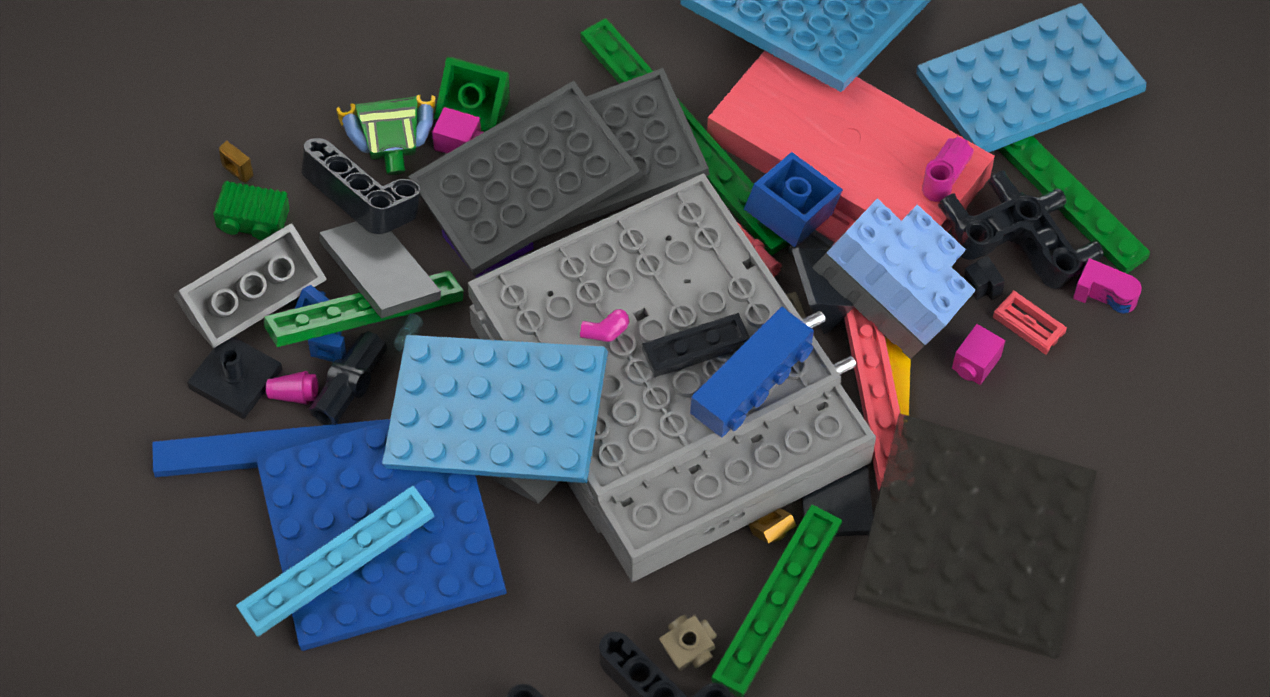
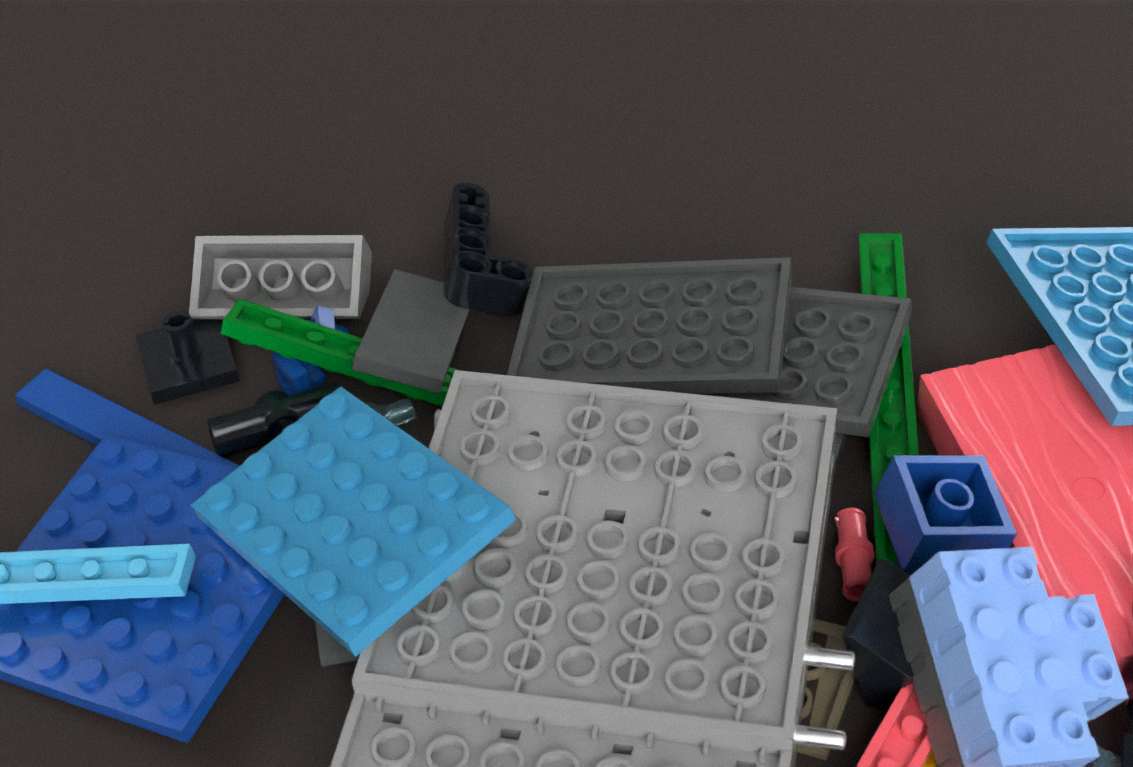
camera: 45 degrees right, 15 degrees down
(235, 161) = (392, 175): pearl gold tile -> none
(250, 210) = (360, 212): green brick -> none
(294, 388) = (219, 395): dark pink cone -> none
(389, 128) = (569, 218): torso -> none
(454, 130) = (629, 245): dark pink brick -> none
(474, 91) = (682, 226): green slope -> none
(608, 329) = (550, 500): dark pink arm -> none
(695, 345) = (638, 583): black tile -> none
(752, 372) = (670, 651): blue brick -> none

